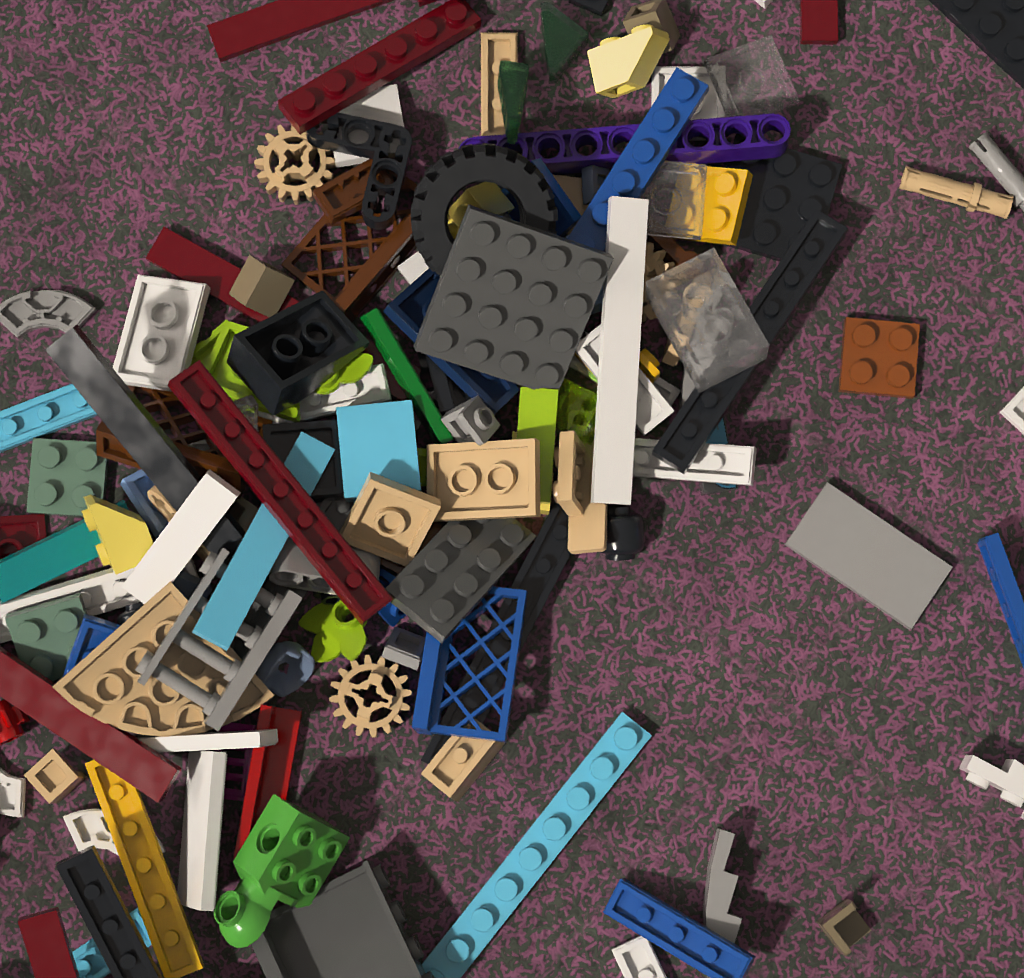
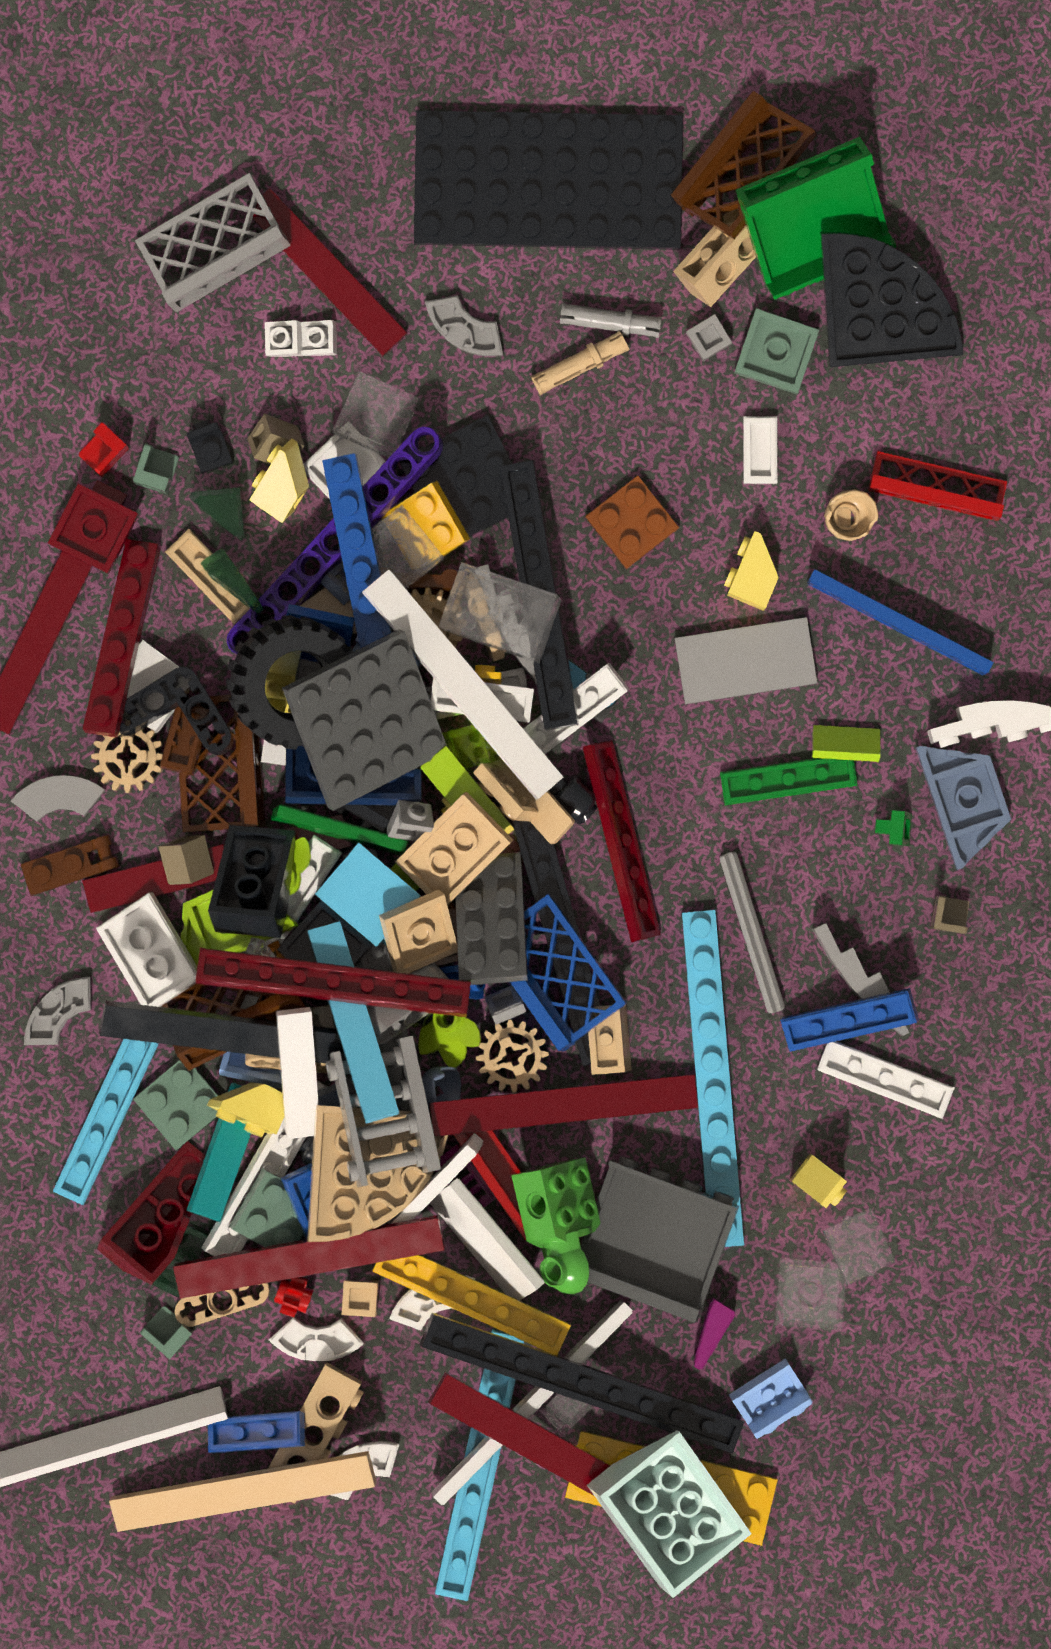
camera: 40 degrees left, 5 degrees up
(165, 205) = (68, 865): none -> reddish brown plate
(211, 141) = (58, 794): none -> light grey tile
(372, 776) = (563, 1105): none -> dark red tile
(628, 605) = (621, 840): none -> dark red tile
(664, 783) = (752, 932): none -> light grey axle
(813, 685) = (786, 779): none -> green tile
(867, 811) = (898, 828): none -> green tile
(885, 80) = (462, 329): none -> light grey tile
(889, 701) = (846, 743): none -> lime tile
(942, 493) = (755, 576): none -> light yellow slope
(946, 841) = (965, 799): none -> sand blue wing

